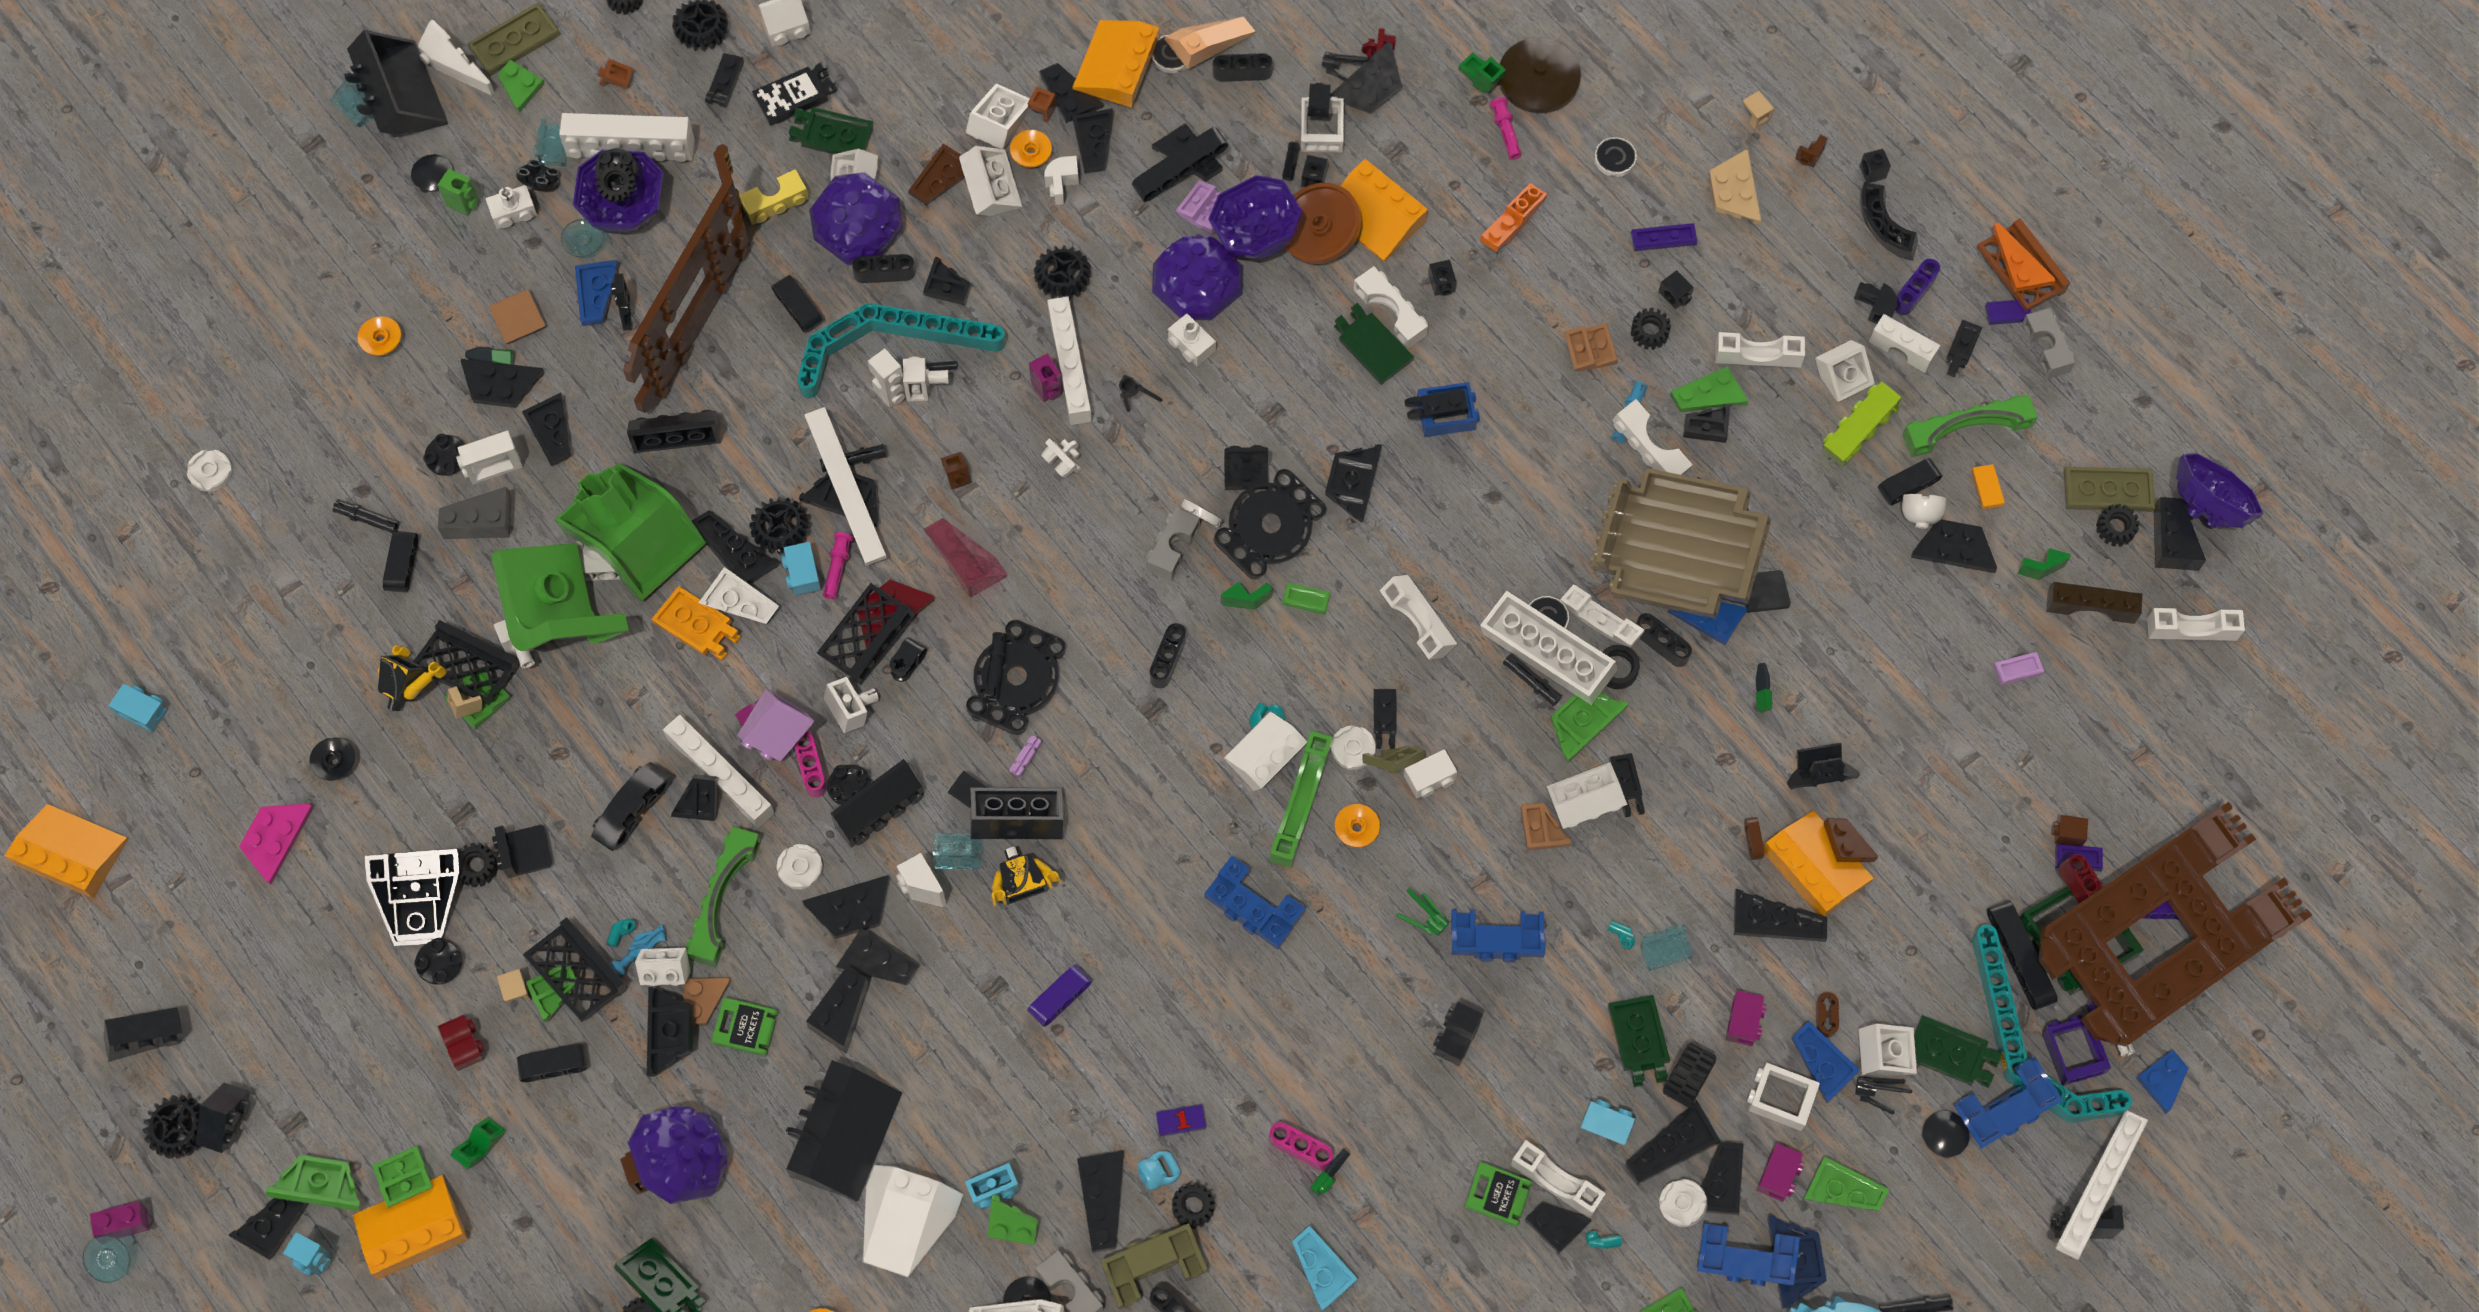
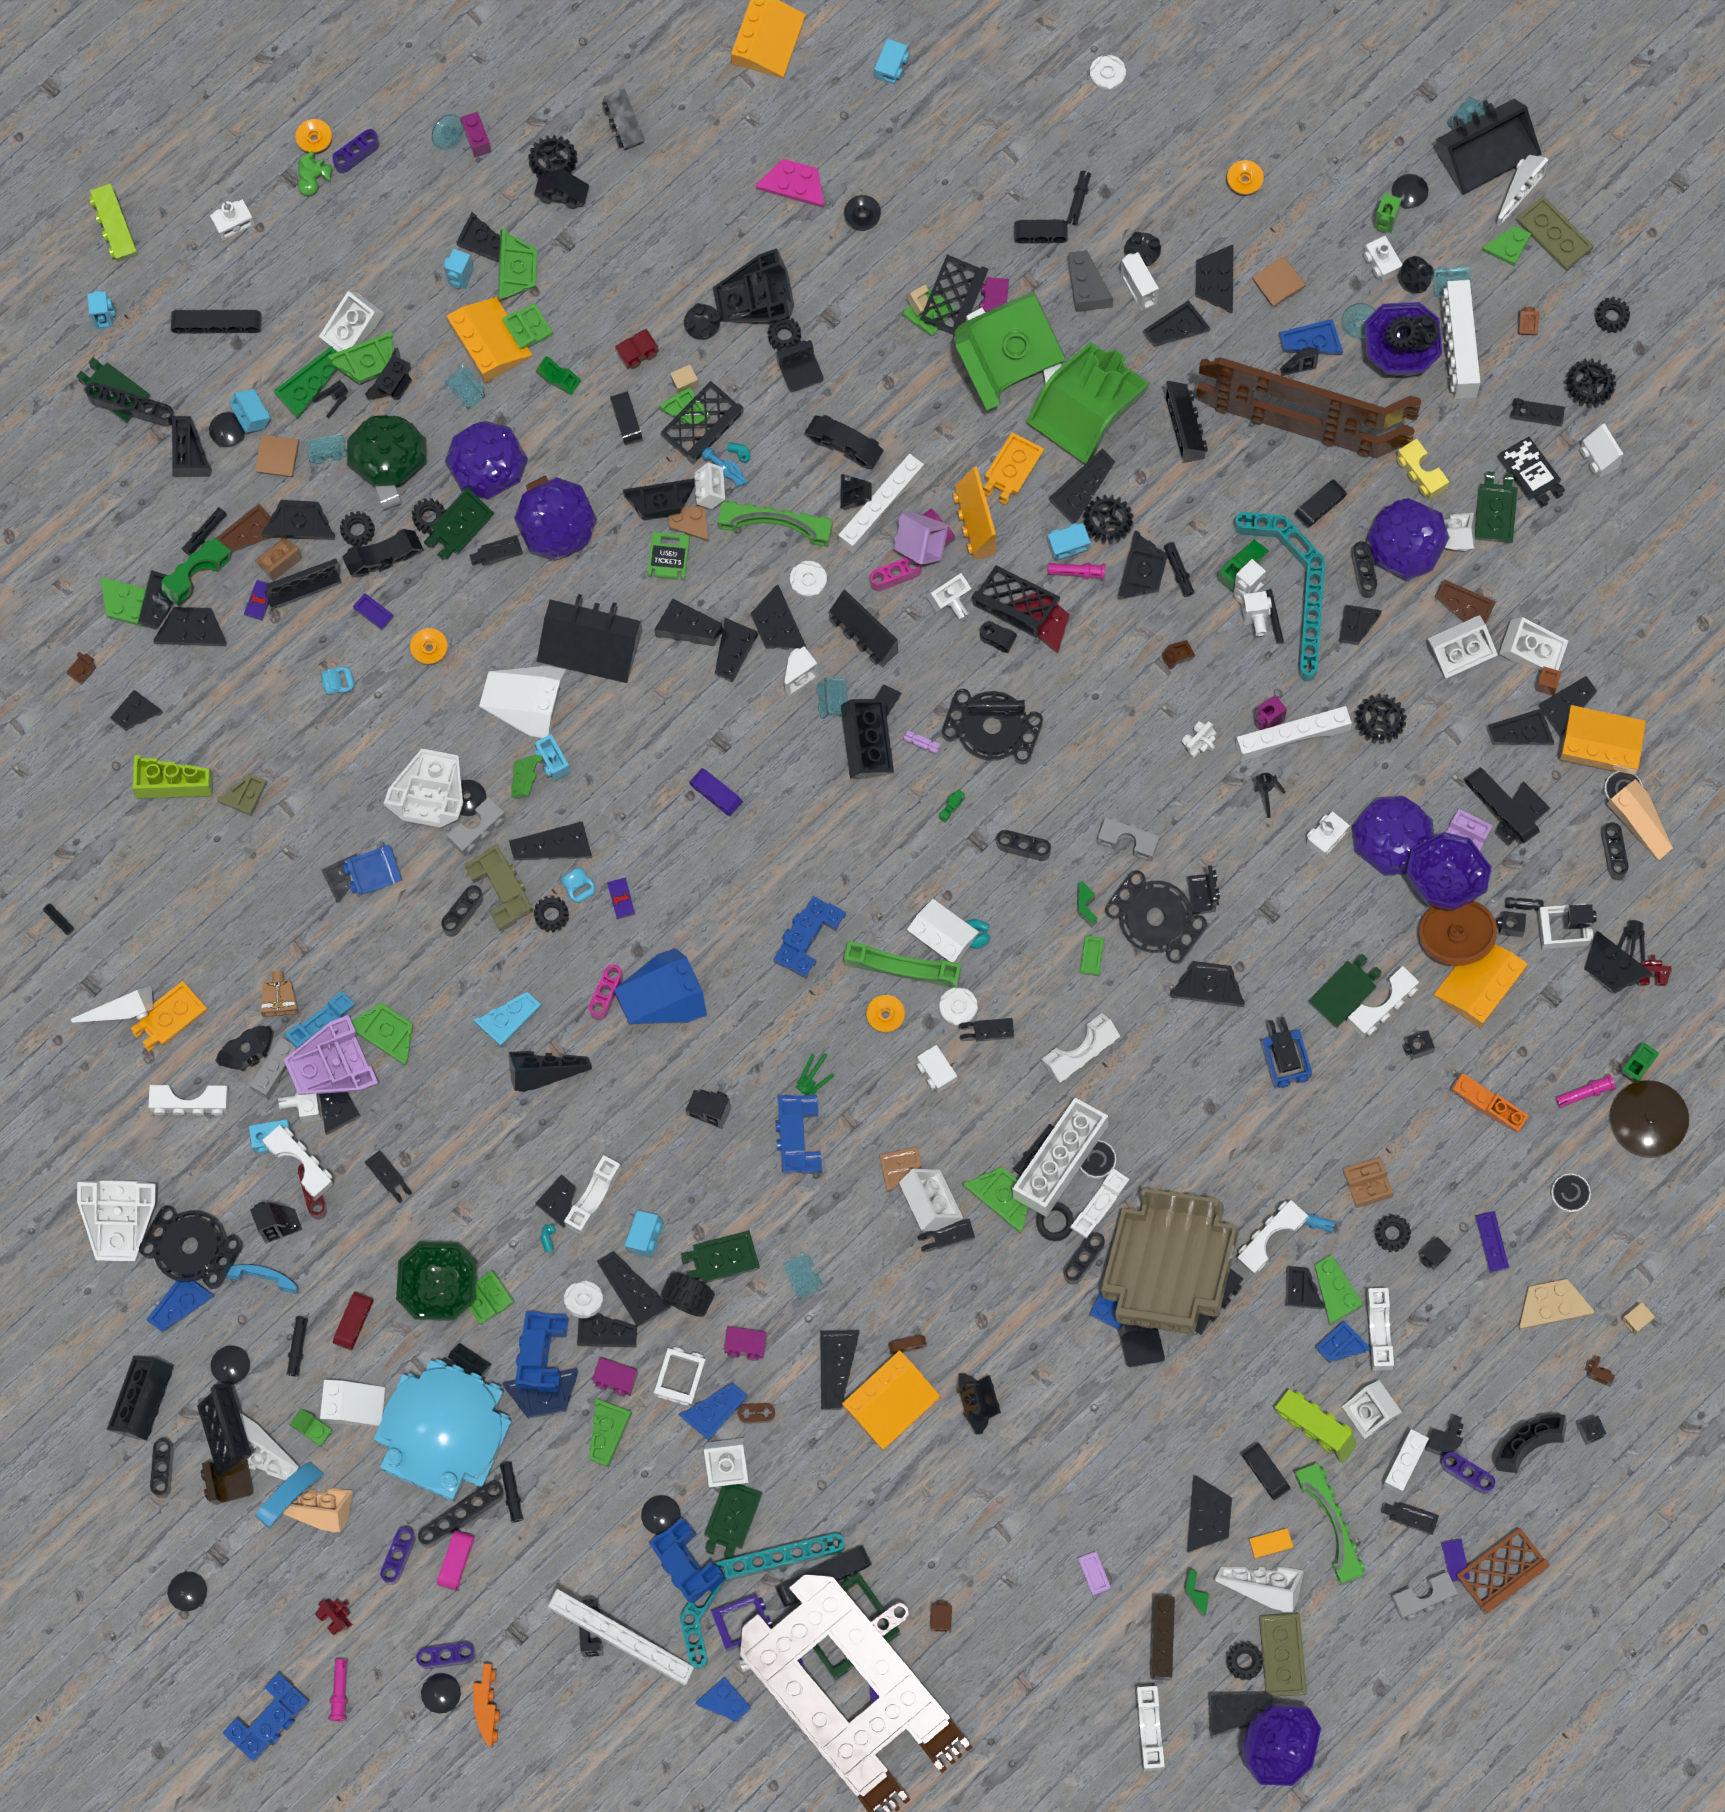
camera: 90 degrees right, 5 degrees up
(402, 678) = (934, 249): torso -> none
(471, 1261) = (466, 387): none -> clear light blue bracket
(477, 618) = (995, 293): none -> magenta brick
(490, 355) = (1239, 264): piece -> none
(575, 1244) = (486, 459): none -> dark purple rock
(704, 1237) = (497, 551): none -> black hinge
(738, 598) = (1037, 492): white wing -> none
(754, 661) = (975, 515): none -> light orange slope
(845, 486) = (1148, 565): white tile -> none
(846, 782) = (882, 605): black dish -> none
(859, 391) = (1253, 550): none -> green slope
(968, 561) = (1095, 673): clear pink wedge -> none
(1021, 878) = (812, 748): torso -> none
(1030, 141) = (1505, 669): light orange dish -> none
(1061, 173) = (1479, 703): white brick -> none
(1106, 726) = (954, 802): none -> green plate
(1200, 512) = (1157, 858): white tile -> none
(1306, 1077) = (662, 991): none -> blue wedge
(1325, 1180) = (580, 1014): piece -> none
(1393, 1236) = (536, 1071): none -> black wedge
(1395, 759) = (947, 1039): olive wing -> none
(1502, 1195) = (579, 1154): container -> none
(1624, 933) = (812, 1241): teal arm -> none
(1763, 694) = (1041, 1349): piece -> none
(1770, 392) = (1342, 1344): none -> blue wing
(1847, 842) = (911, 1425): reddish brown wing -> none
(1867, 1087) = (694, 1447): black plant -> none
(1923, 509) = (1236, 1481): white cylinder -> none
(2021, 266) = (1499, 1567): orange wing -> none
(2036, 492) = (1273, 1588): none -> white wedge
(2093, 855) = (919, 1627): dark purple tile -> none

